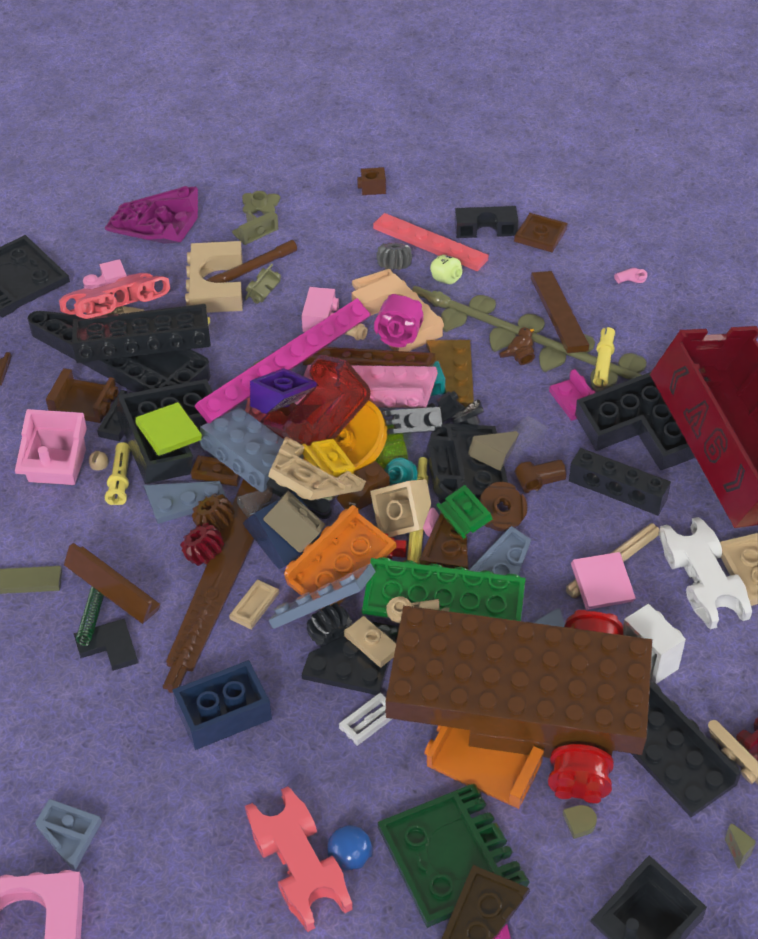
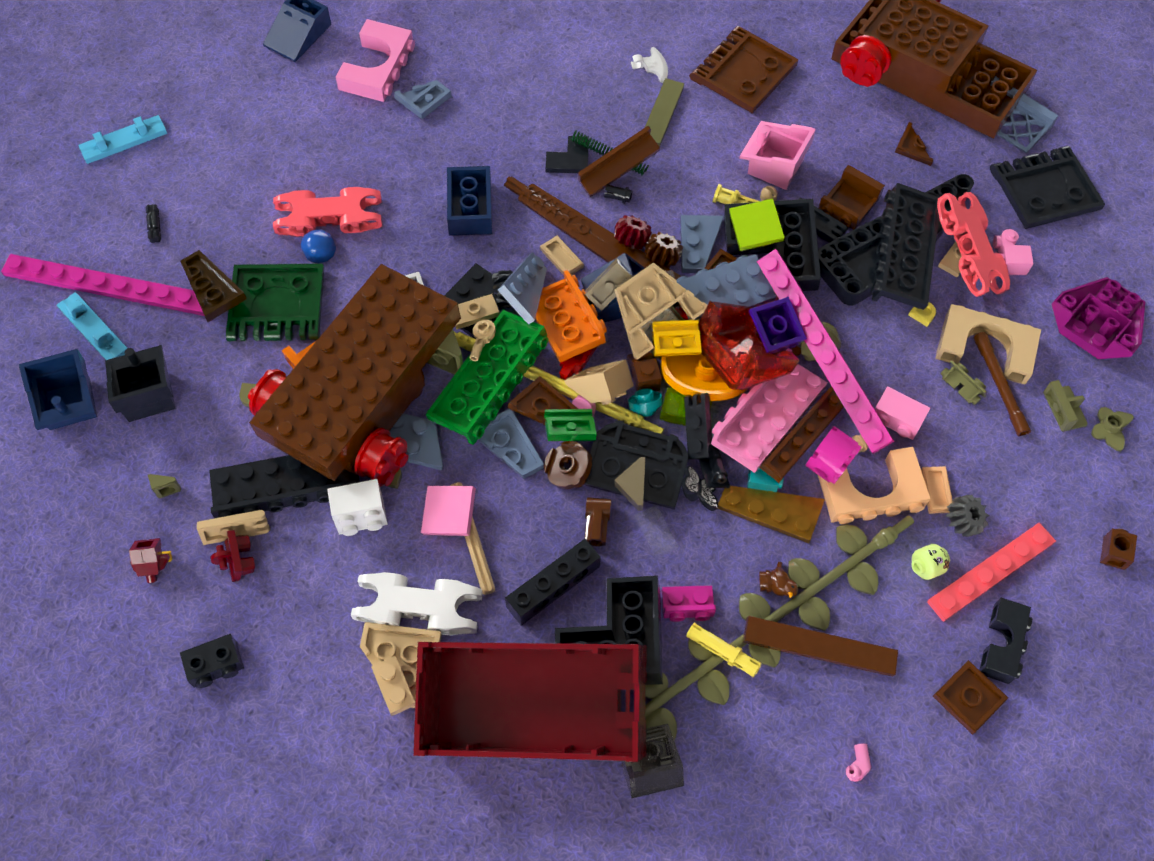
camera: 110 degrees right, 15 degrees up
(148, 575) = (618, 193): none -> black pin

